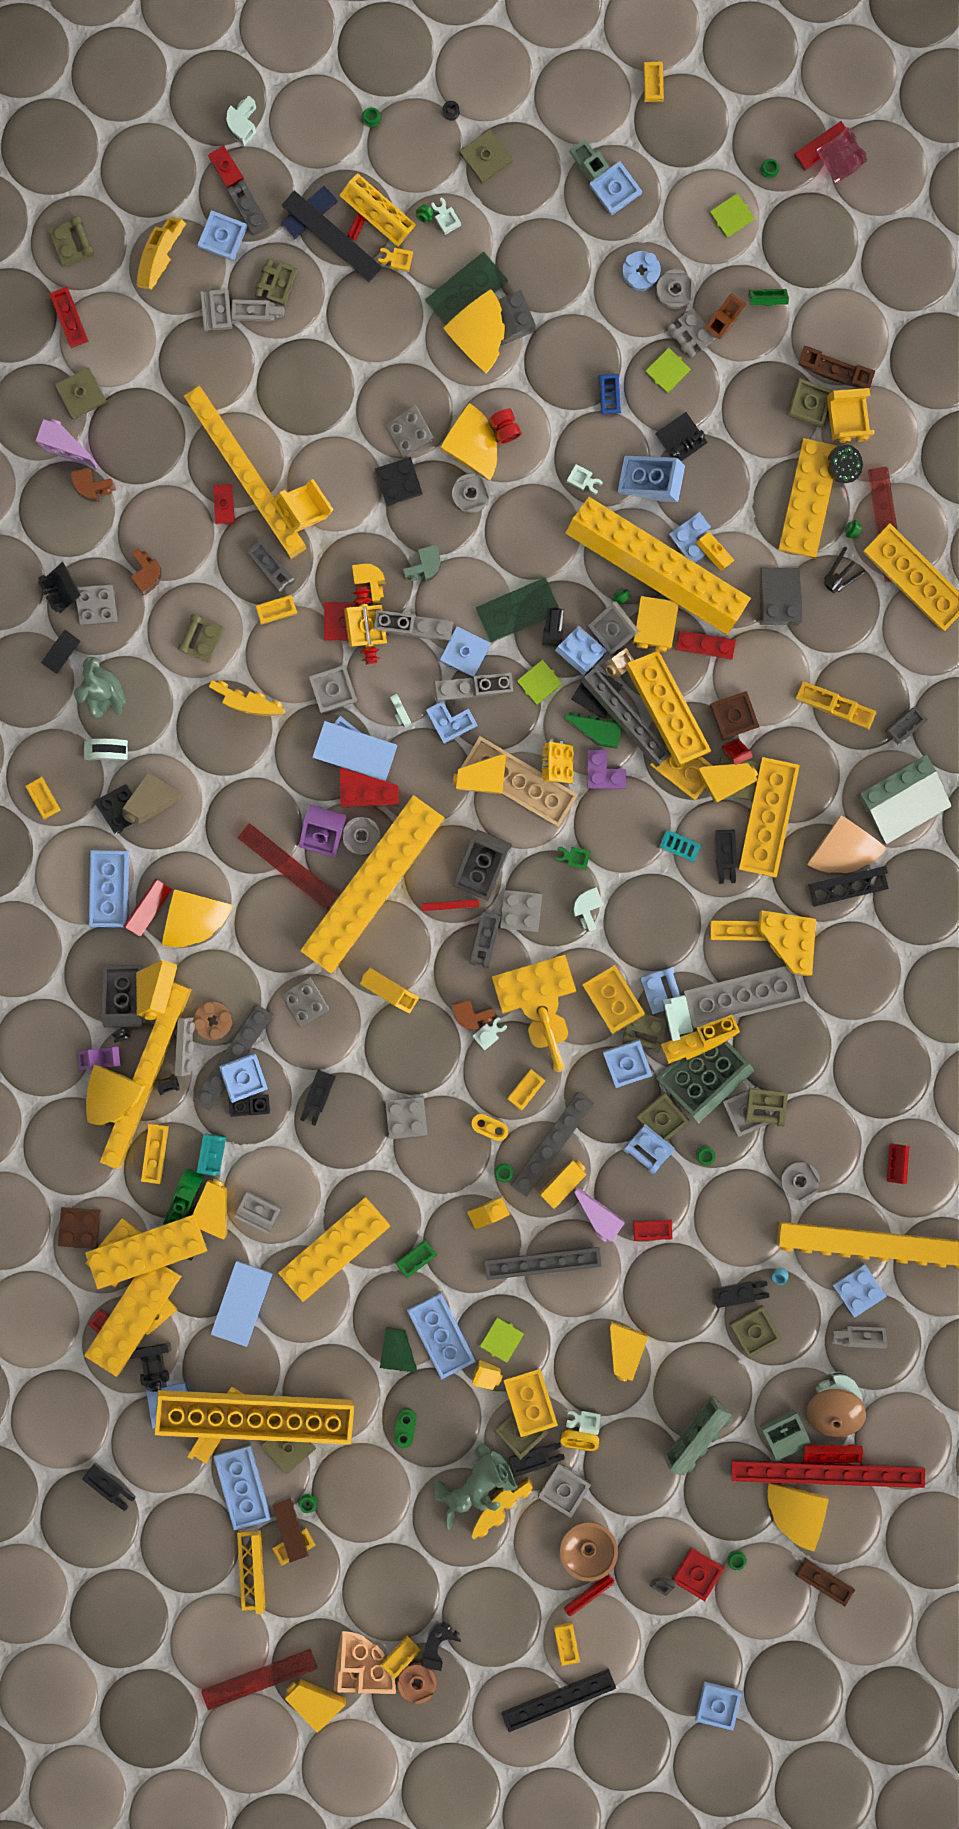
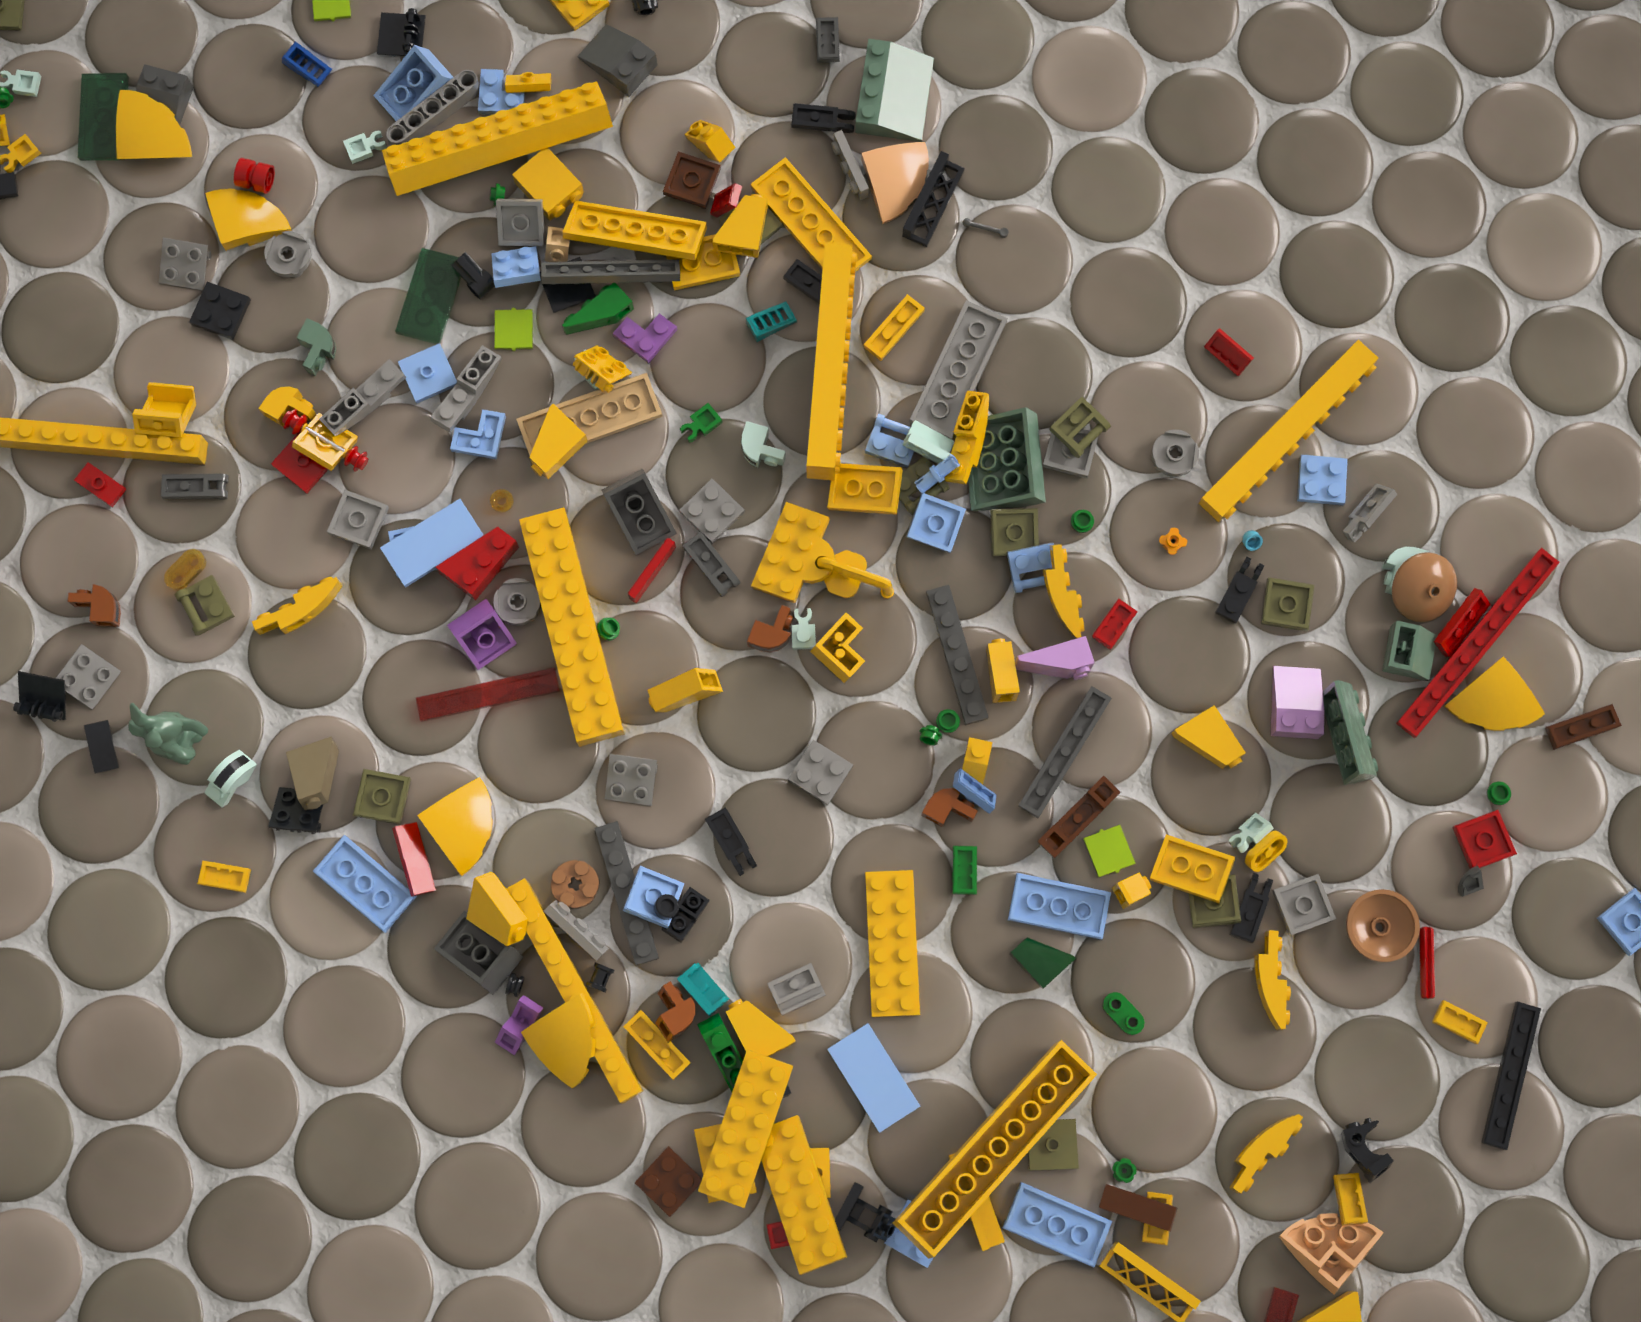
camera: 50 degrees left, 10 degrees down
(170, 854) = (382, 796): none -> olive plate
(183, 1154) = (679, 1013): none -> dark orange brick
(213, 607) = (183, 568): none -> clear yellow plate
(242, 1091) = (666, 907): none -> black tile
(276, 609) = (239, 513): yellow plate -> none
(390, 908) = (608, 628): none -> green plate
(396, 1580) = (1268, 1142): none -> yellow slope
(401, 715) = (435, 474): light aqua plate -> none
(412, 1692) = (1400, 1194): nougat plate -> none
(415, 765) = (498, 494): none -> clear yellow plate
(447, 1212) = (943, 803): none -> dark orange brick
(470, 1226) = (974, 791): none -> medium blue plate
(485, 1168) = (930, 735): none -> green plate
(487, 1473) = (1230, 964): sand green animal -> none
(489, 1128) = (892, 699): yellow plate -> none
(492, 1063) = (835, 651): none -> yellow brick
(507, 1304) = (1078, 817): none -> reddish brown slope
(526, 1089) = (884, 637): yellow plate -> none
(641, 1187) = (1063, 601): none -> yellow slope
(654, 502) = (439, 101): none -> light grey beam
(659, 1039) = (937, 473): none -> light blue pin
(679, 910) = (830, 369): none -> yellow brick
(694, 1387) = (1297, 703): none -> slope
(705, 645) = (605, 157): red plate -> none
(735, 1220) = (1172, 548): none -> light orange plate
(771, 705) = (710, 140): none -> yellow slope
(790, 939) = (939, 286): yellow plate -> none
(828, 812) = (849, 165): none -> light grey plate
(836, 705) = (758, 86): yellow slope -> none
(846, 765) = (821, 118): none -> black hinge
(864, 949) = (1002, 232): none -> dark grey hinge

